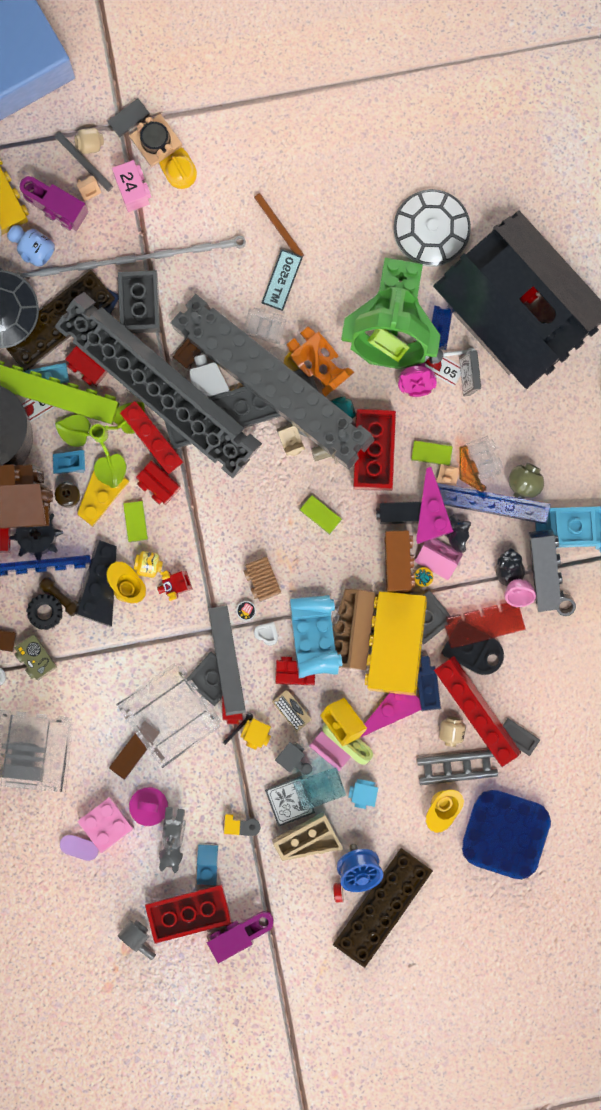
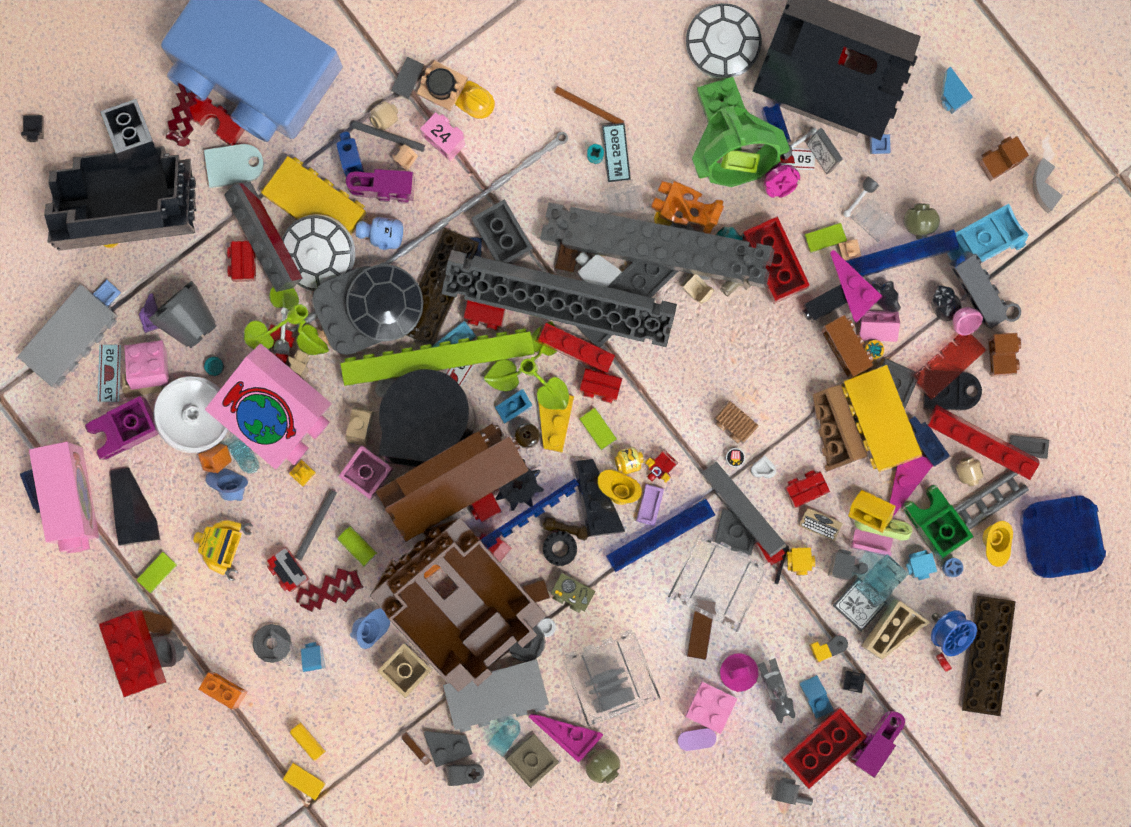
camera: 25 degrees left, 0 degrees up
(38, 160) = (349, 154): none -> blue torso
(141, 646) = (660, 535): none -> clear blue plate
(147, 614) = (650, 505): none -> lavender tile
(248, 868) = (853, 681): none -> black tile
(261, 278) = (597, 148): none -> teal bush
(314, 635) = (807, 449): medium azure piece -> none
(320, 514) = (756, 340): lime tile -> none
(392, 813) = (955, 566): none -> medium blue wheel
(398, 758) = (937, 518): none -> green brick
(468, 470) = (867, 237): clear orange tile -> none
(495, 426) = (869, 186): none -> hinge
(525, 396) = (880, 147): none -> medium blue plate
(538, 639) = (1003, 354): none -> dark orange brick

